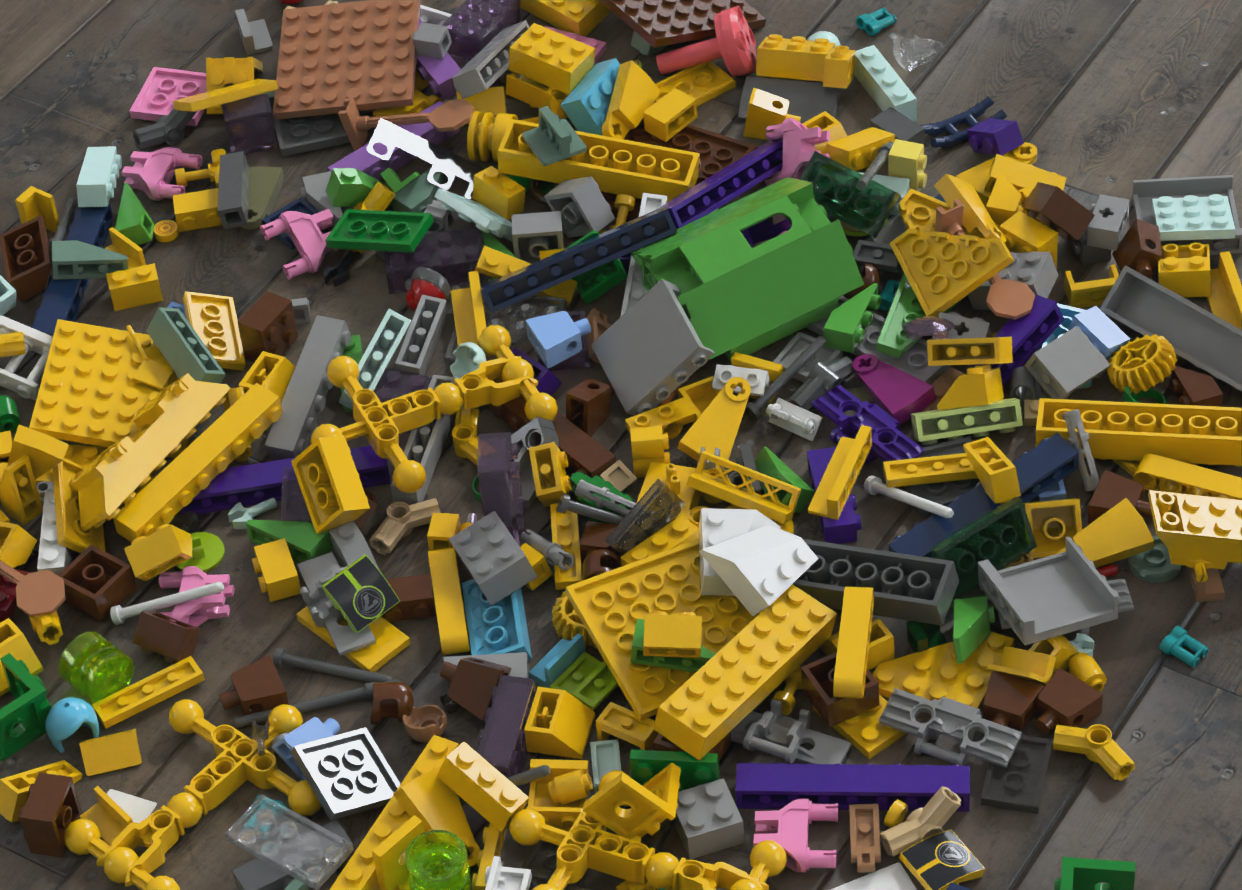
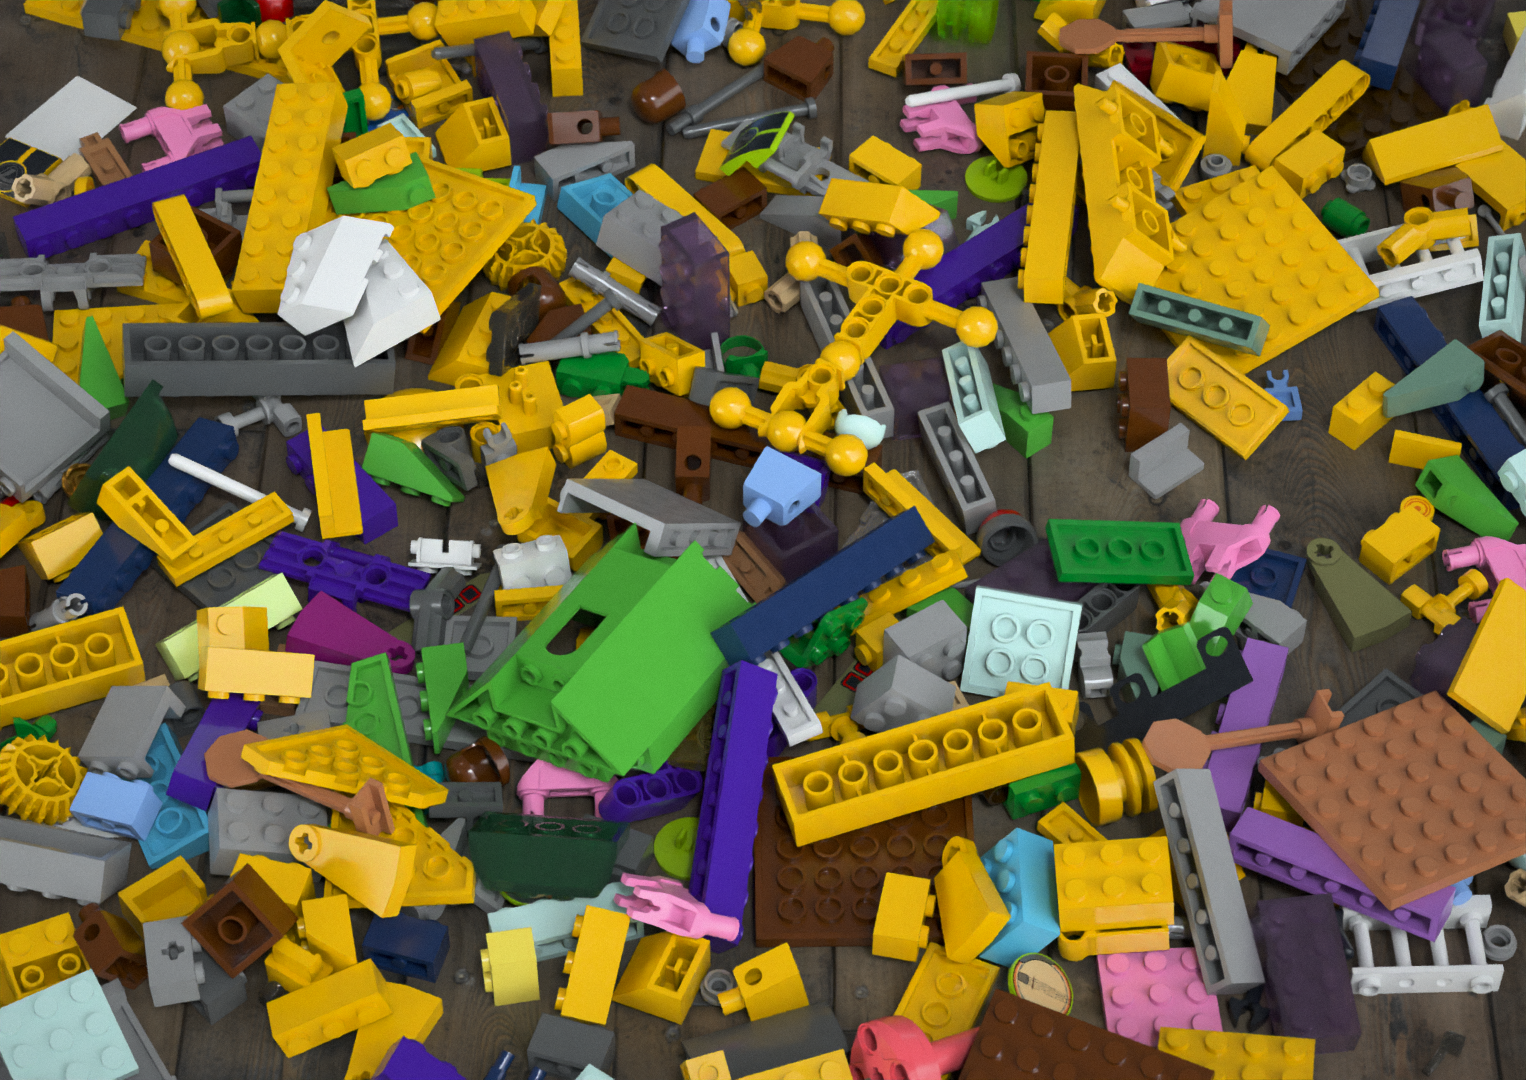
camera: 145 degrees right, 5 degrees up
(41, 448) = (1223, 117): yellow piece -> none
(150, 371) = (1227, 295): yellow piece -> none
(233, 190) = (1367, 555): dark grey brick -> none
(425, 723) = (609, 93): medium nougat hair -> none
(432, 40) = (1304, 838): light grey brick -> none
(553, 138) = (981, 718): sand green bracket -> none
(875, 166) = (544, 948): dark grey bar -> none
(927, 325) = (328, 687): dish -> none

